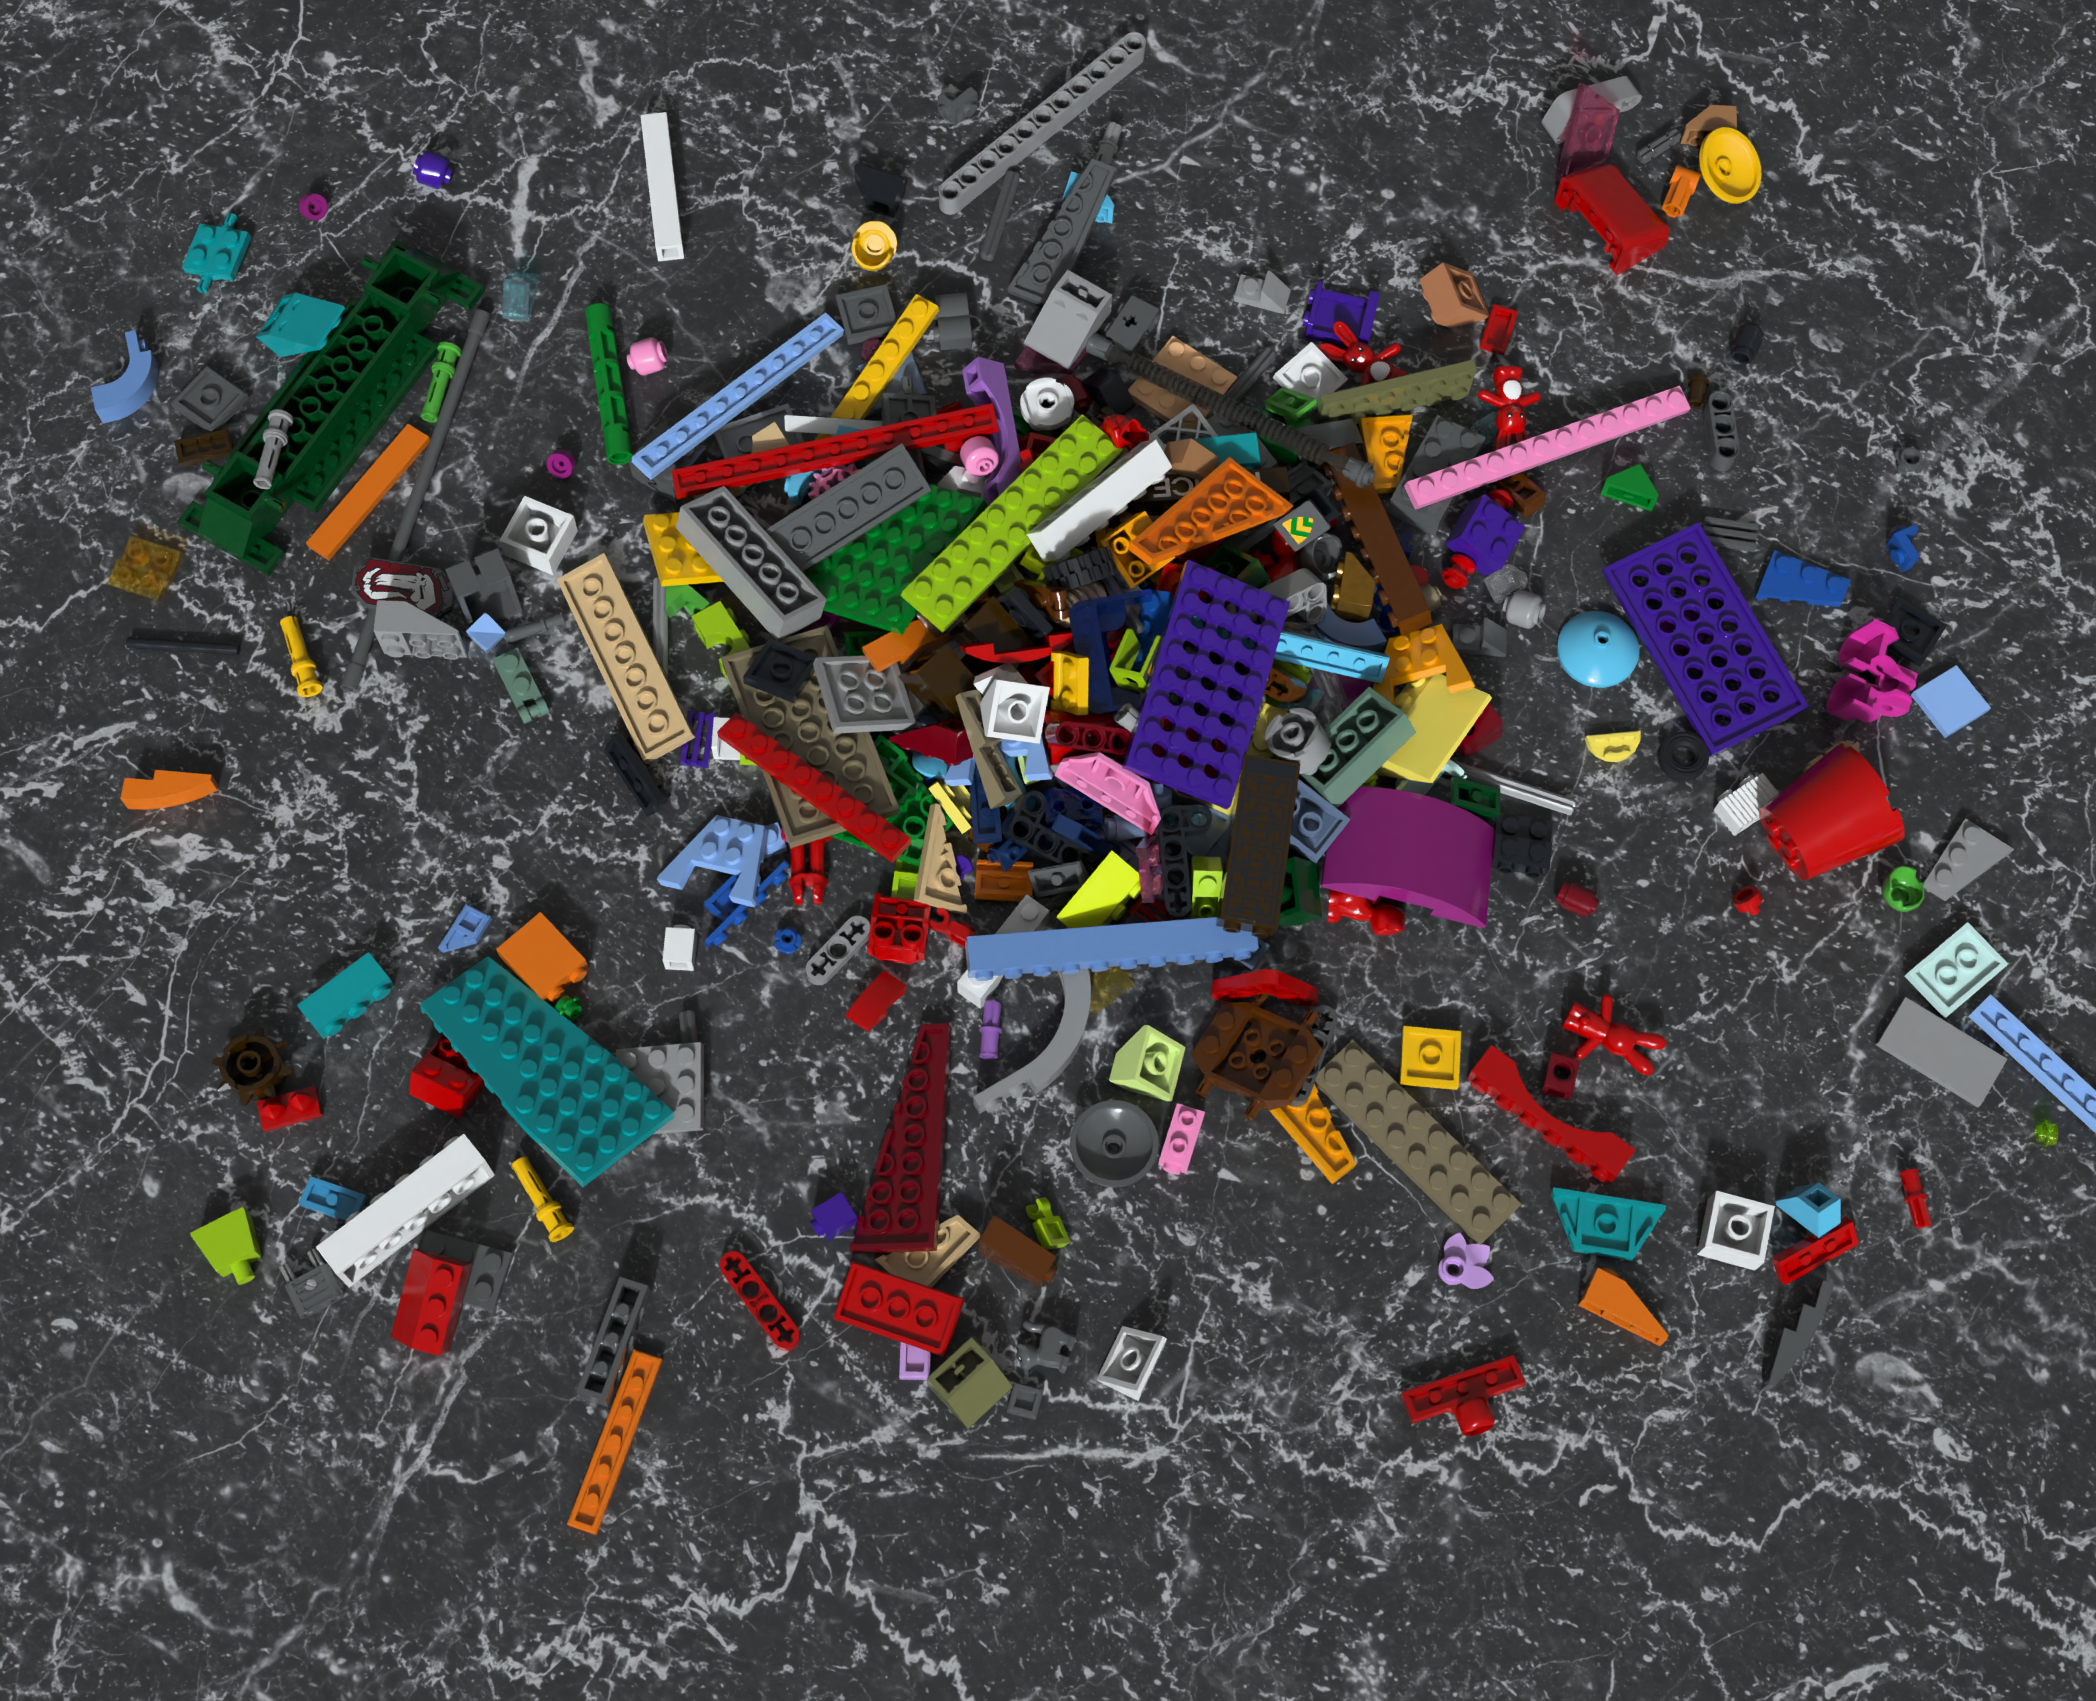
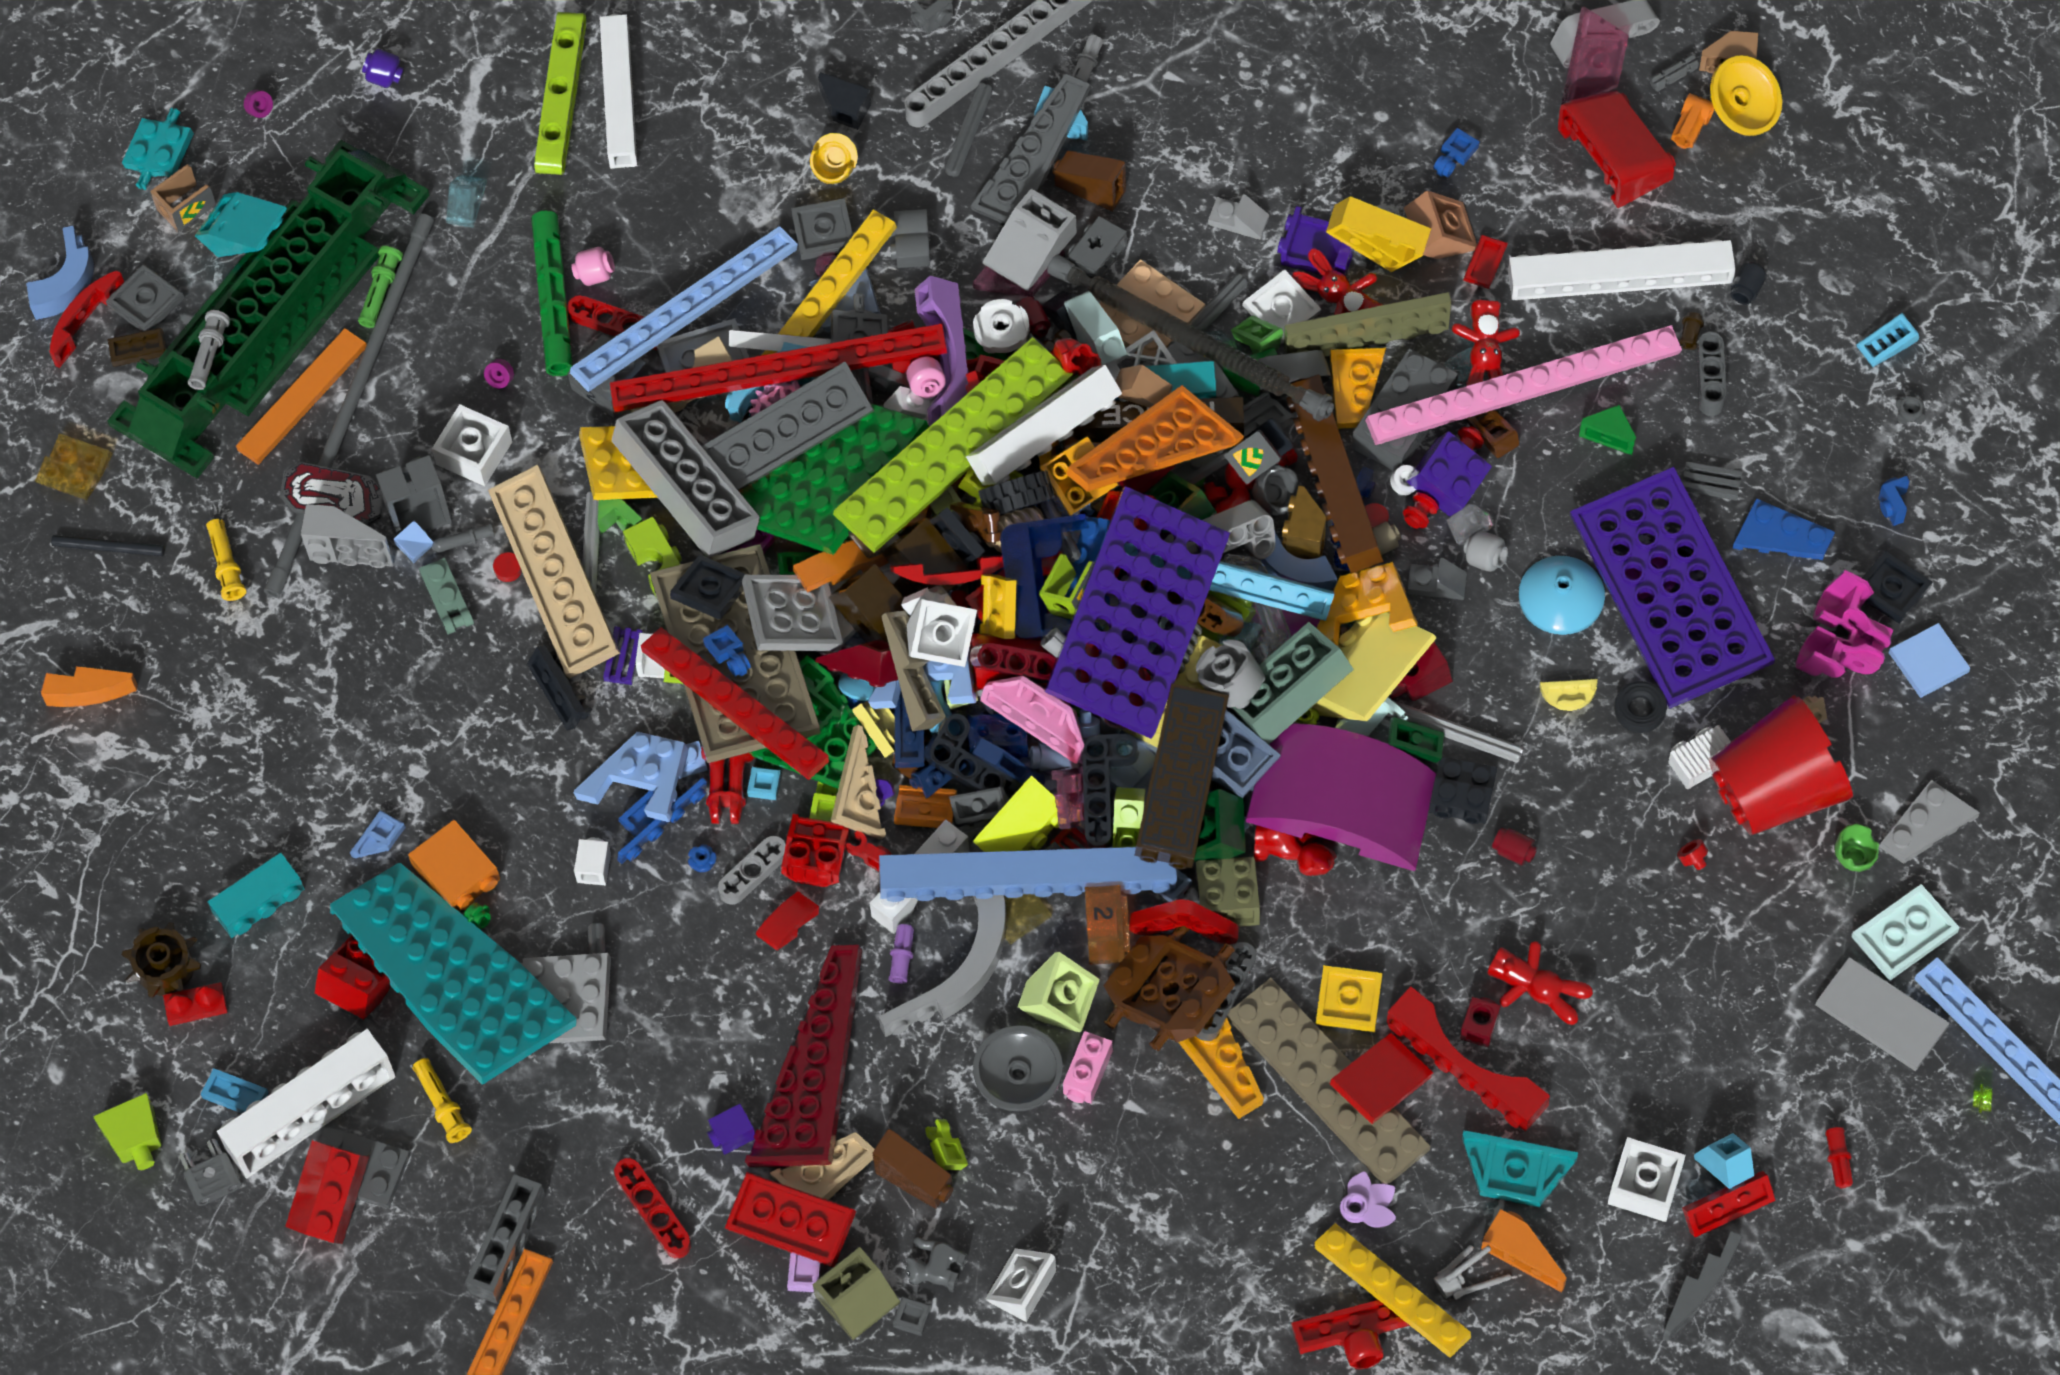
camera: 10 degrees right, 5 degrees down
(144, 415) = (78, 312): none -> red slope
(250, 310) = (190, 208): none -> medium nougat piece
(579, 655) = (506, 567): none -> red tile
(605, 204) = (559, 108): none -> lime beam
(653, 397) = (597, 308): none -> red beam
(801, 729) = (726, 645): none -> blue plate
(844, 862) = (764, 783): none -> medium azure tile
(1121, 258) = (1092, 178): none -> reddish brown slope
(1137, 402) = (1095, 327): none -> light aqua slope
(1190, 994) = (1107, 924): none -> clear orange brick
(1308, 953) = (1230, 889): none -> olive bracket
(1400, 305) = (1378, 233): none -> yellow wedge
(1437, 540) = (1399, 478): none -> white tile
(1464, 222) = (1457, 147): none -> blue plate
(1469, 1138) = (1381, 1078): none -> red tile
(1499, 1355) = (1392, 1290): none -> yellow plate
(1552, 1341) = (1450, 1278): none -> light grey plant
(1627, 333) = (1621, 270): none -> white brick
(1896, 380) = (1902, 343): none -> medium azure slope

